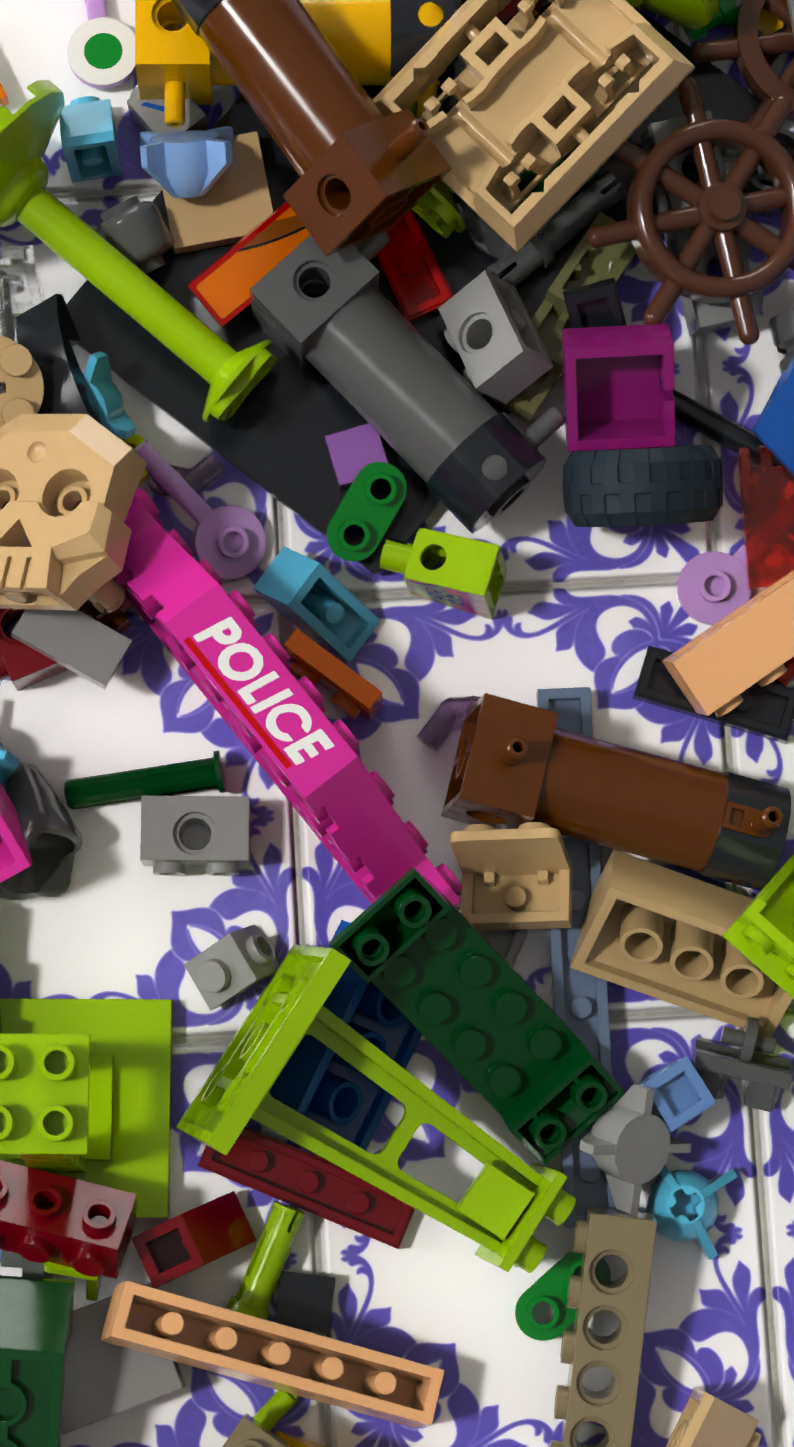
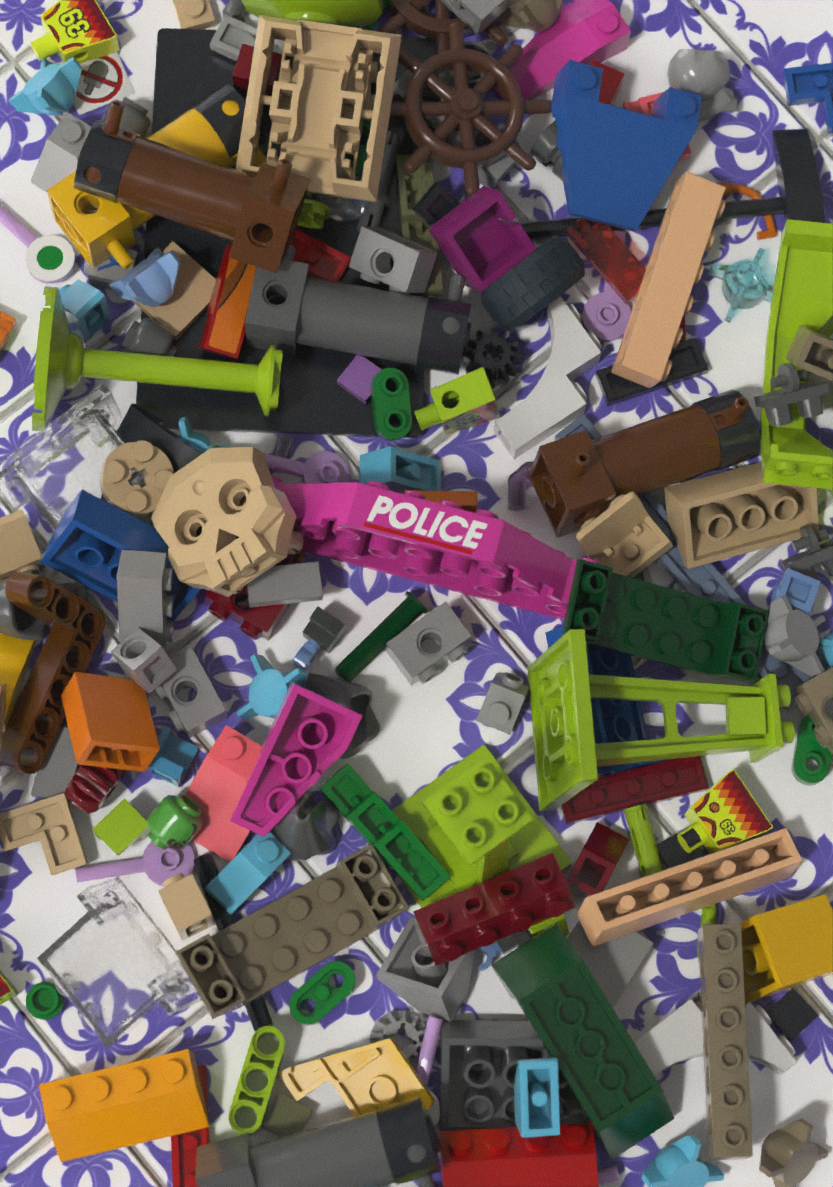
camera: 40 degrees left, 5 degrees down
(82, 727) = (321, 632): none -> pearl dark grey piece
(384, 1299) = (724, 817): none -> torso
(550, 532) = (495, 346): none -> black gear
(568, 644) = (554, 399): none -> white arch

